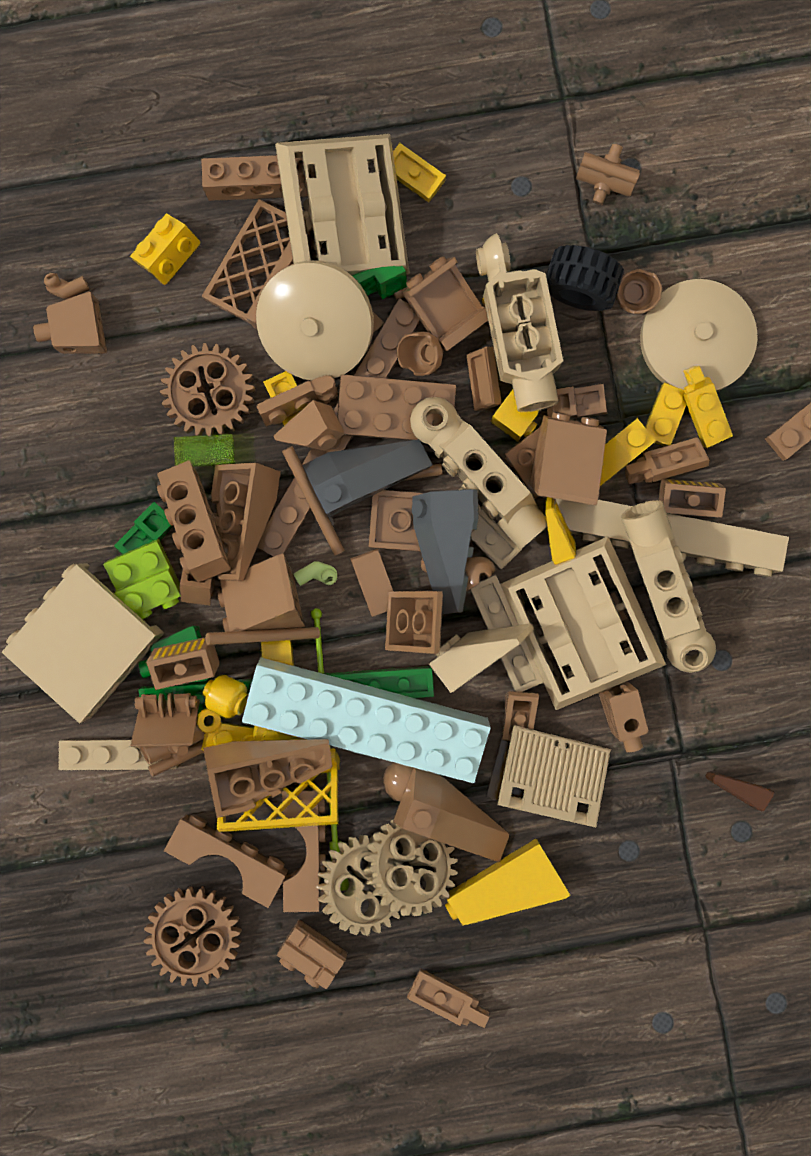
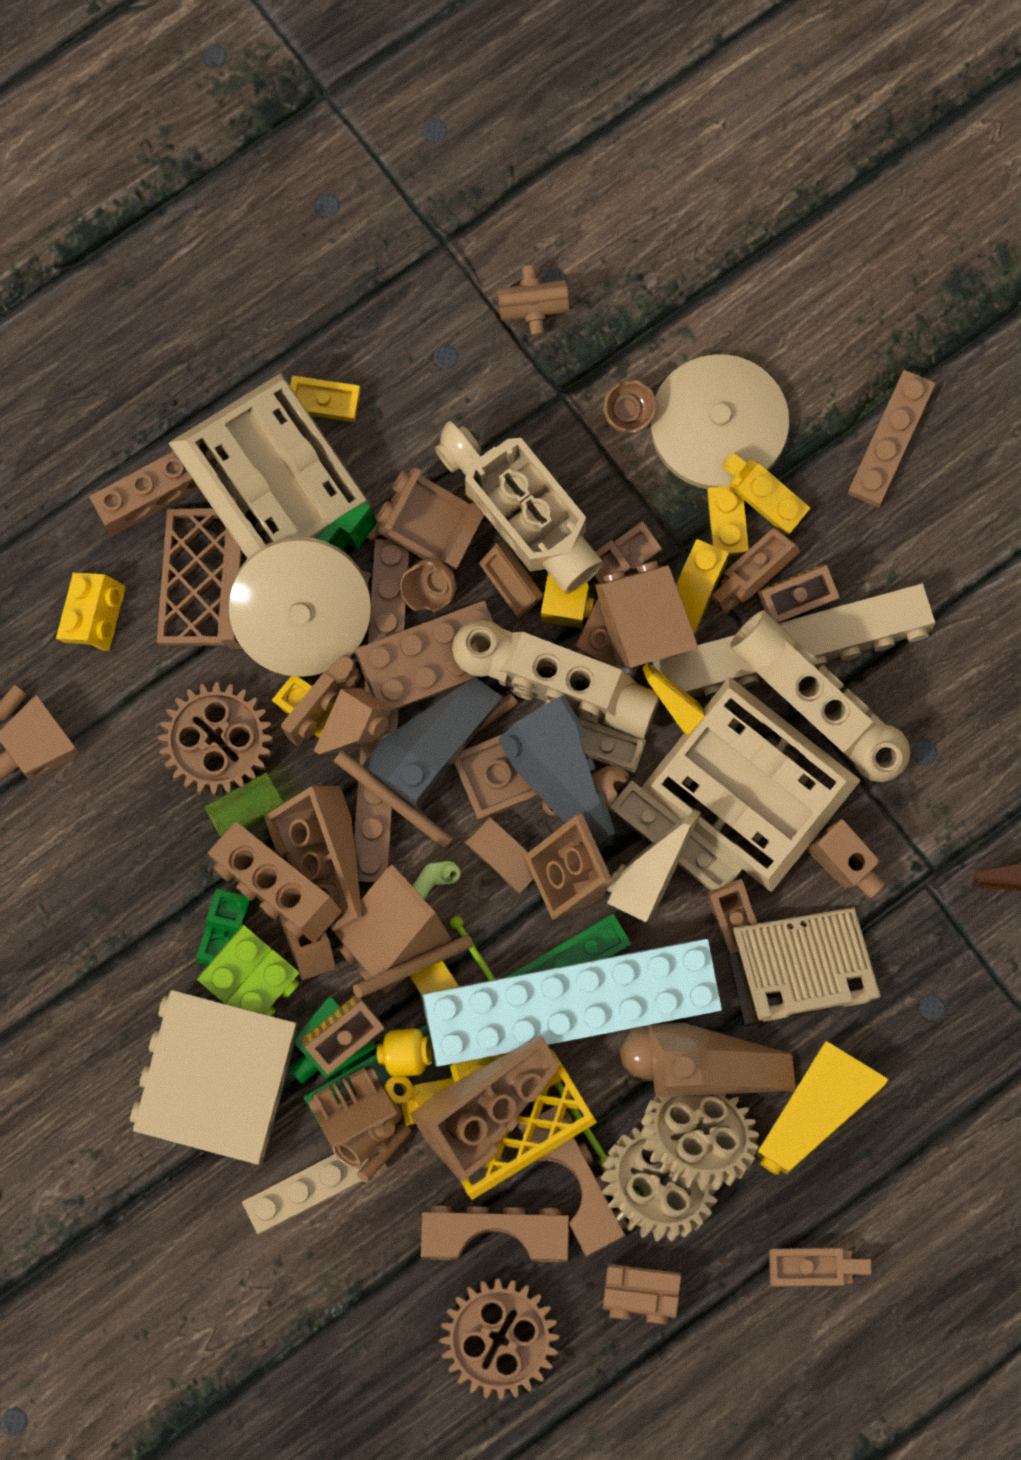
camera: 25 degrees left, 10 degrees down
(584, 278) = (564, 421): black tyre -> none

